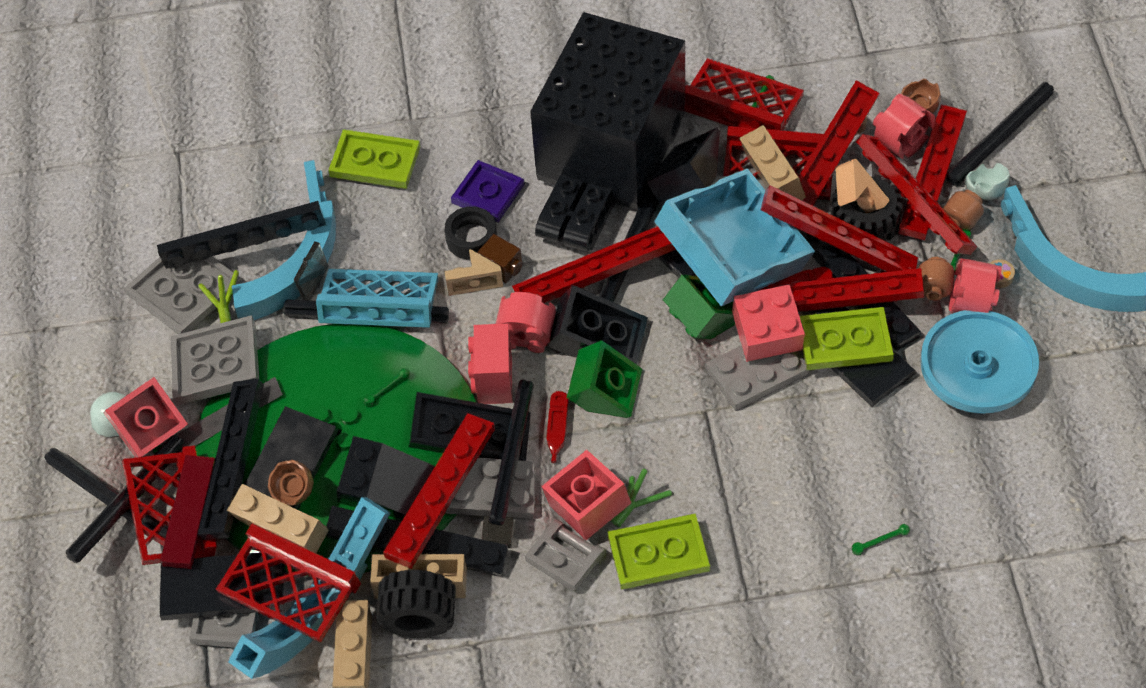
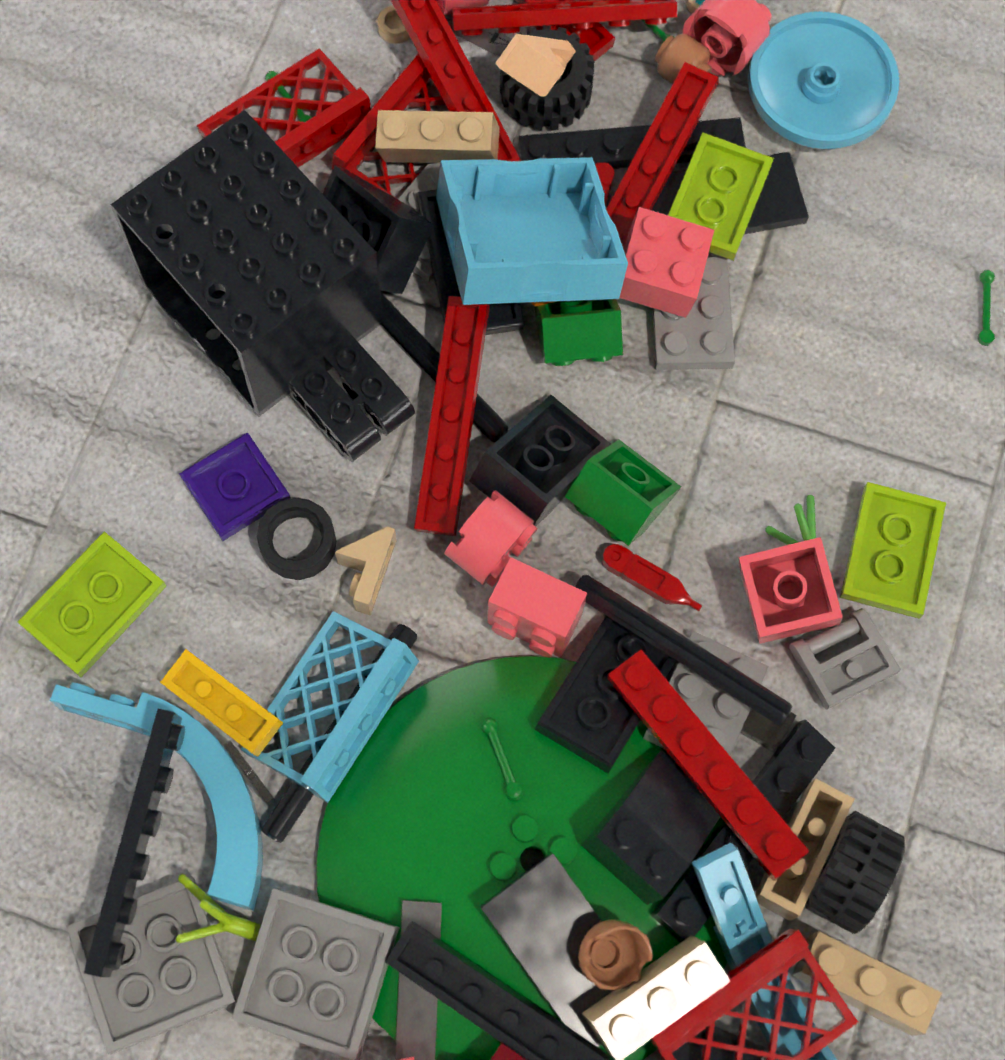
camera: 70 degrees left, 15 degrees up
(348, 243) = (221, 702): none -> yellow plate
(503, 254) = (362, 516): reddish brown brick -> none
(836, 231) = (577, 121): red plate -> none

